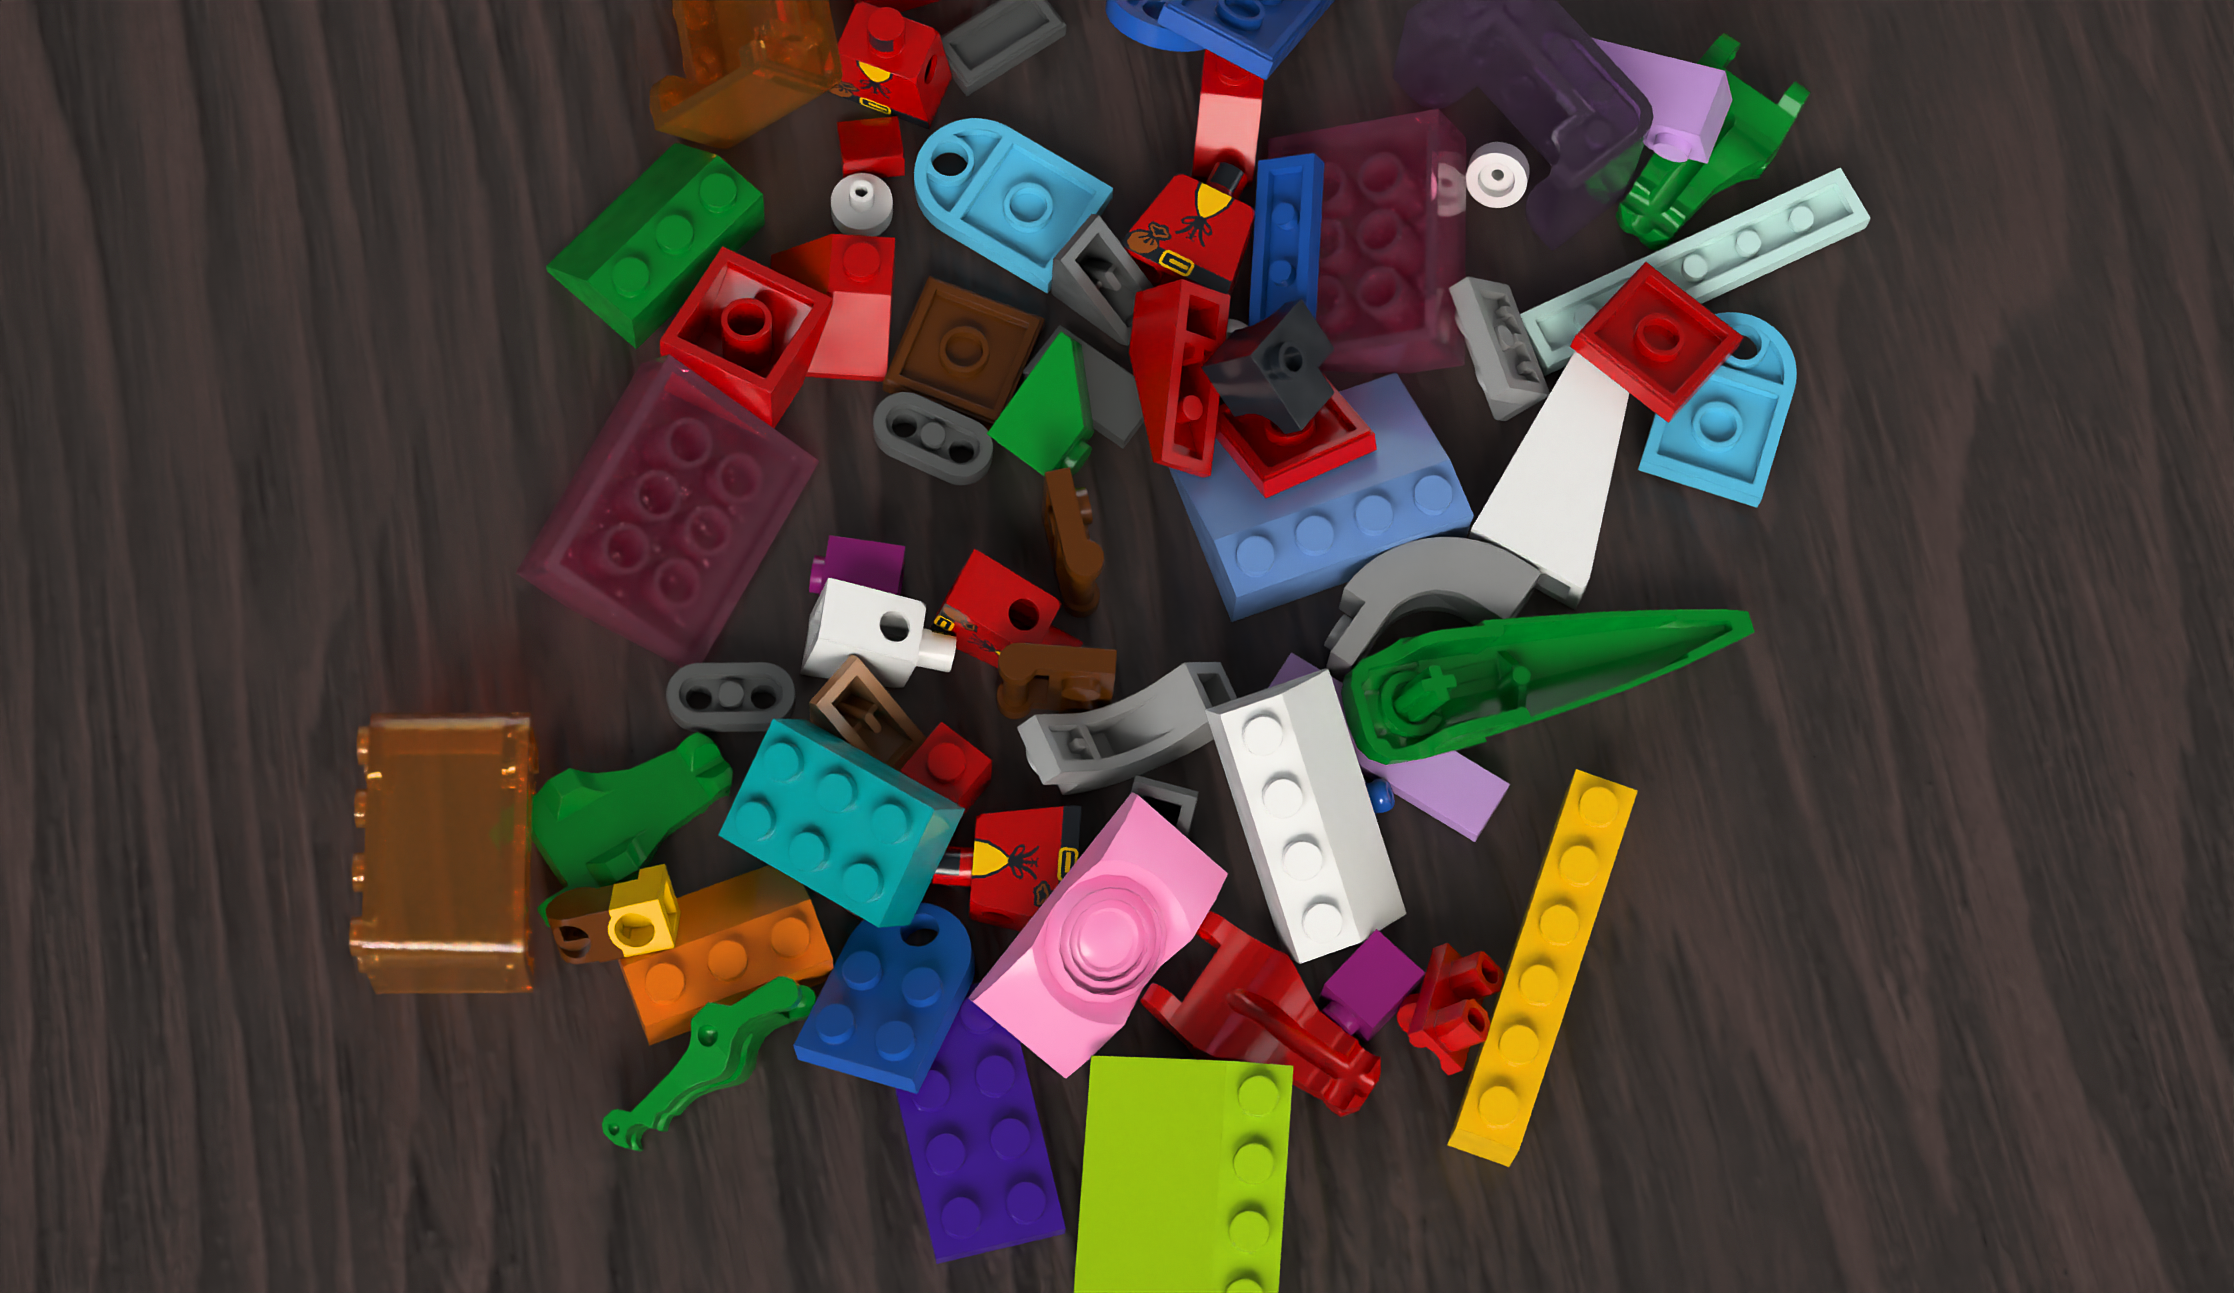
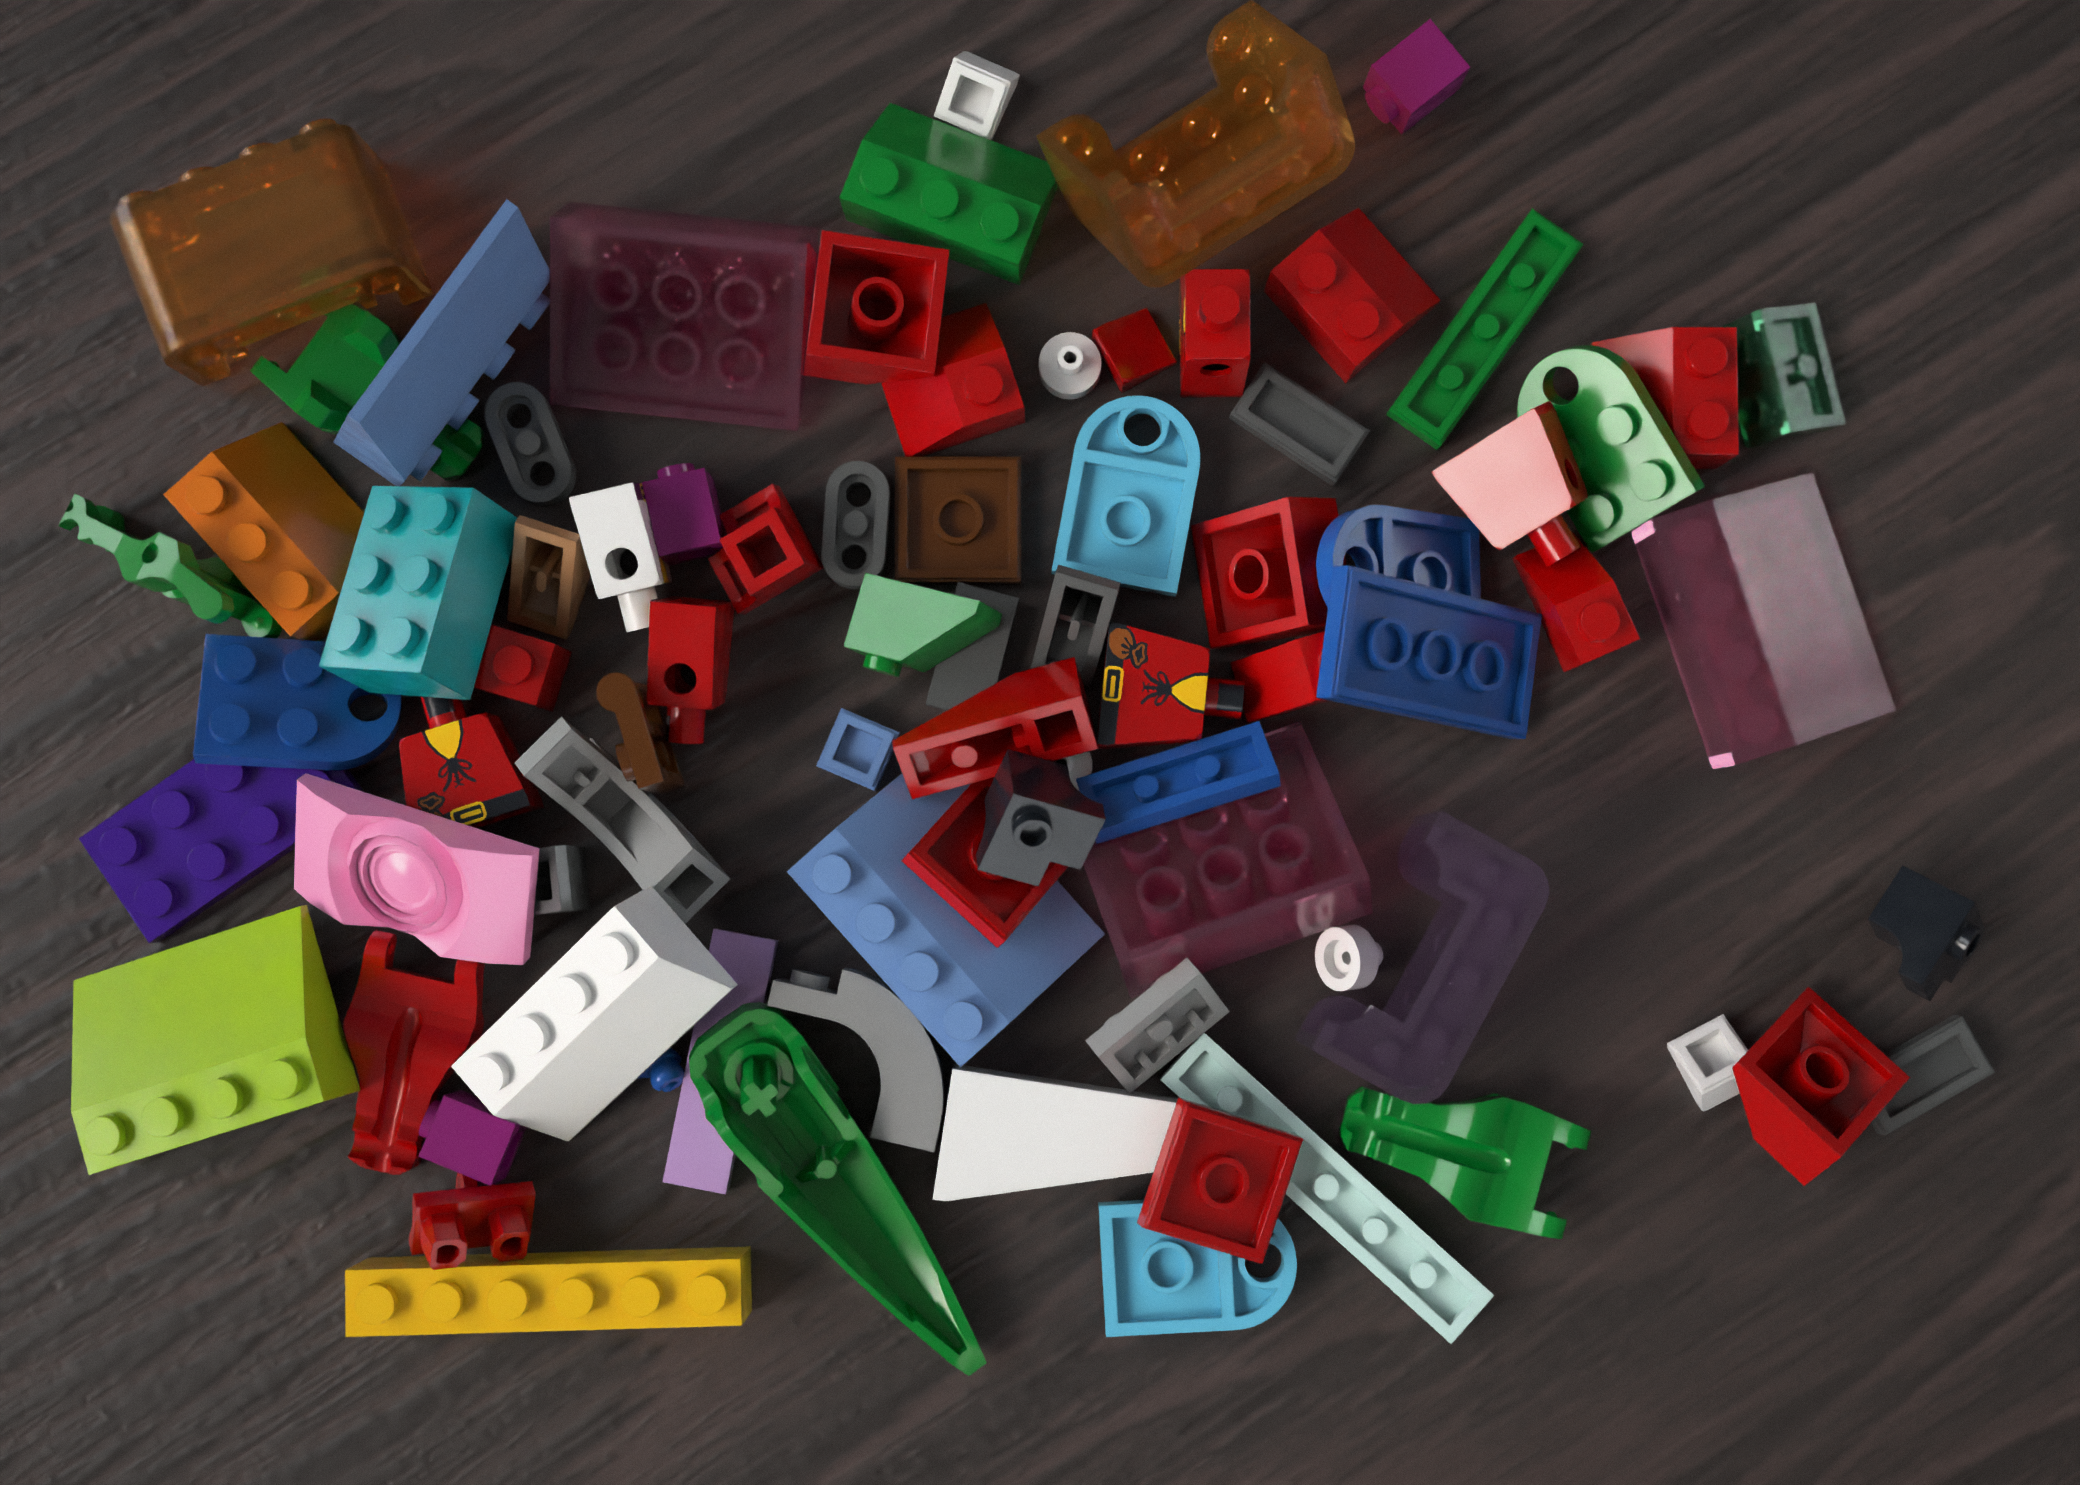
camera: 80 degrees right, 15 degrees up
(573, 190) = (976, 94): none -> white slope
(616, 919) = (258, 431): leg -> none
(618, 714) = (448, 351): none -> medium blue slope
(927, 518) = (762, 550): none -> red brick
(1073, 555) = (799, 683): reddish brown plate -> none
(1126, 106) = (1262, 571): none -> red slope
(1141, 519) = (858, 749): none -> medium blue tile
(1685, 100) = (1479, 1111): lavender slope -> none

